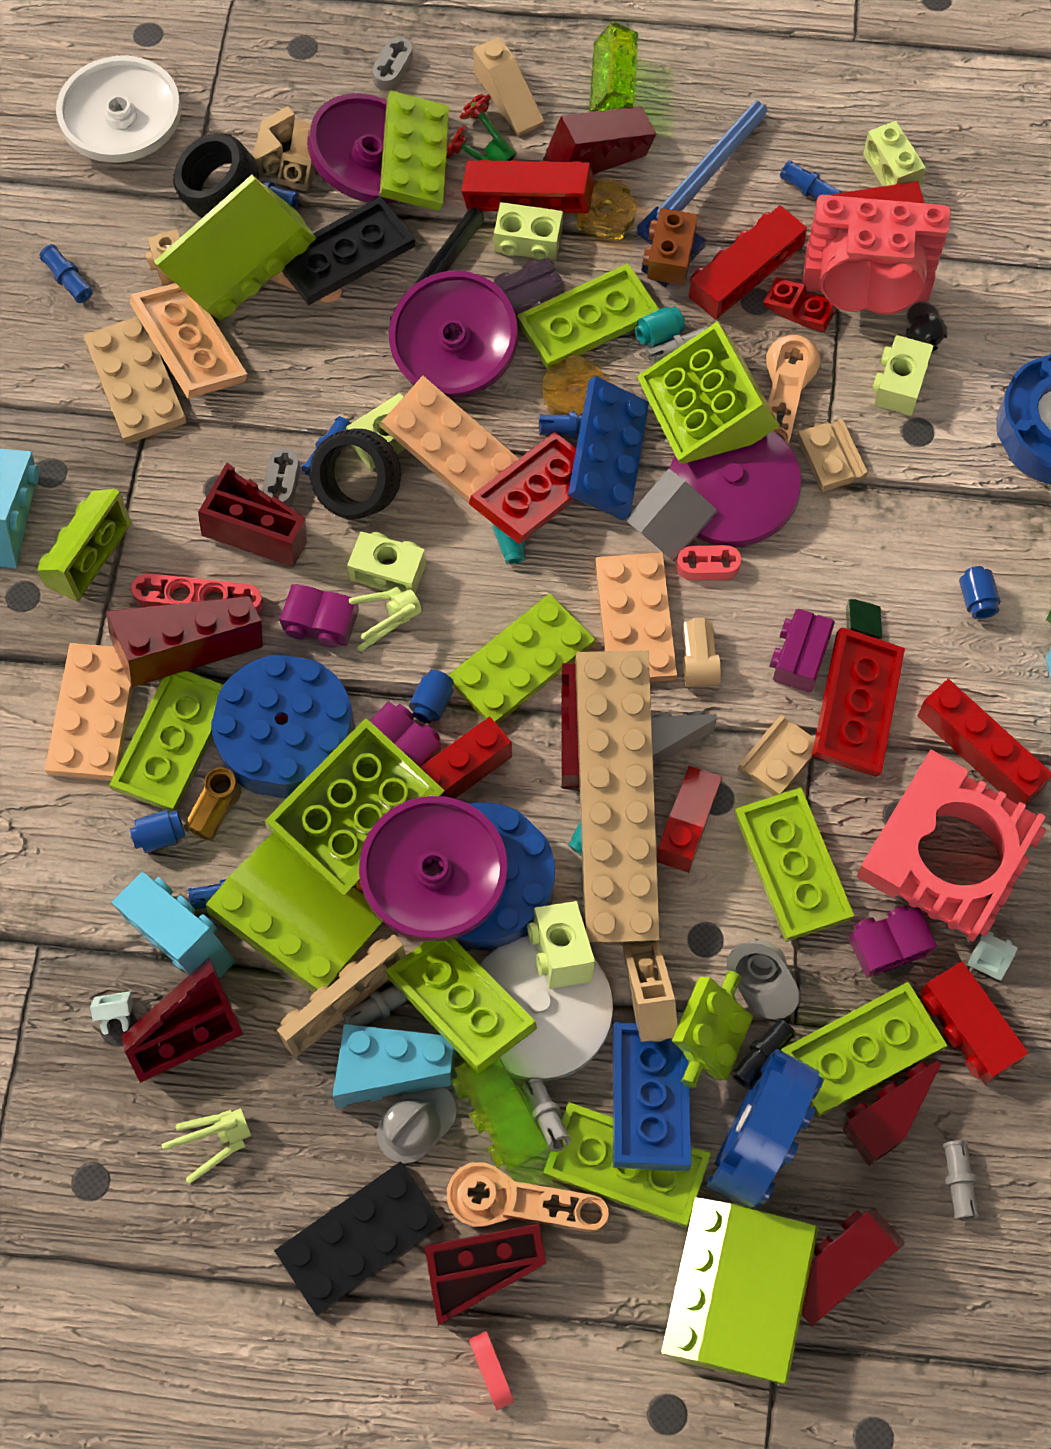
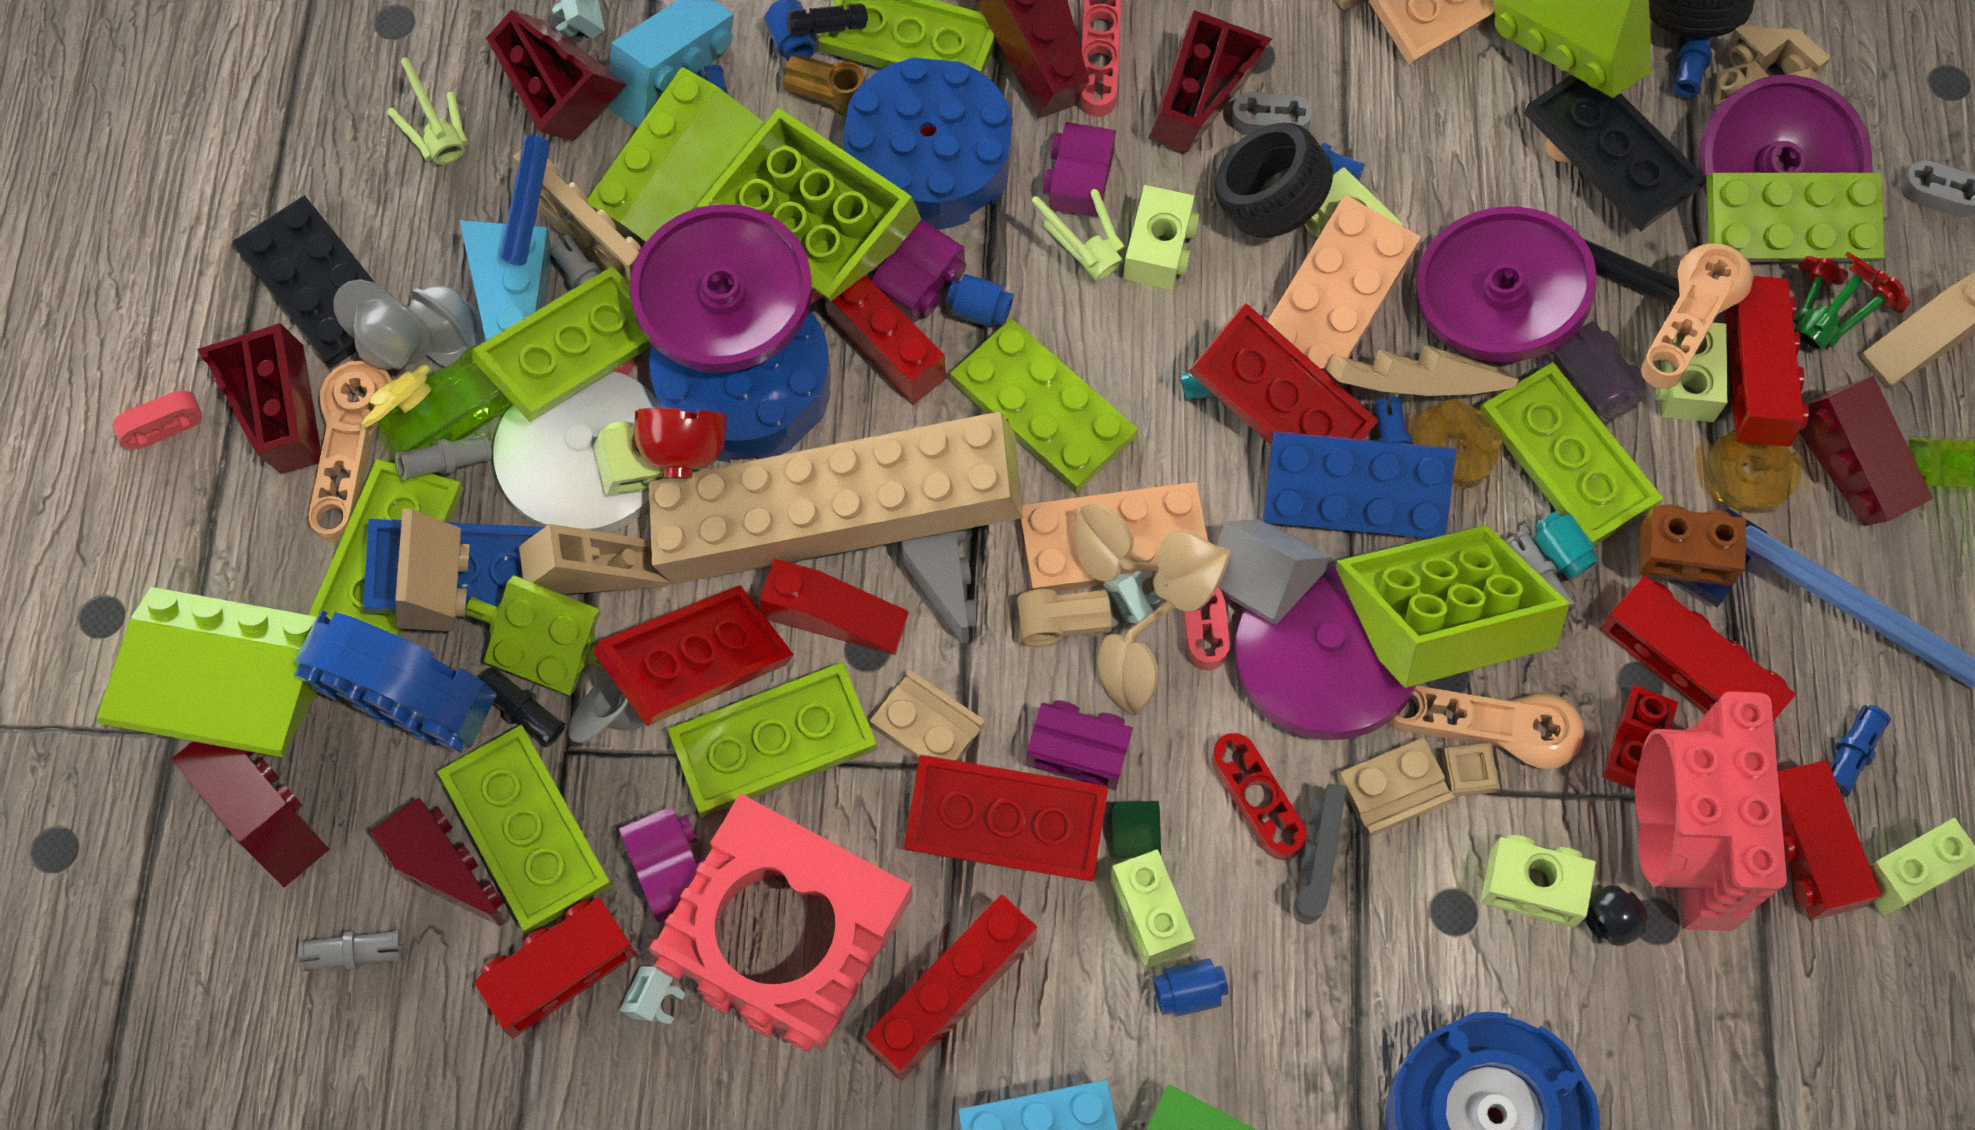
camera: 85 degrees right, 0 degrees up
(161, 794) = (827, 19): none -> black axle
(333, 1028) = (525, 200): none -> blue axle
(424, 1166) = (382, 327): none -> light grey piece
(491, 216) = (1697, 307): none -> light nougat beam
(497, 1144) = (402, 392): none -> light yellow plate
(524, 394) = (1432, 375): none -> tan slope
(566, 902) = (679, 439): none -> red cylinder
(673, 1107) = (429, 573): none -> tan slope
(689, 603) = (1129, 597): none -> light aqua tile
(707, 536) = (1186, 577): none -> tan plant
(738, 908) = (692, 654): none -> red plate
(819, 408) = (1470, 769): none -> tan tile
(845, 527) = (1286, 820): none -> red beam
(885, 502) = (1320, 856): none -> dark grey plate
(926, 610) = (1151, 908): none -> yellowish green brick

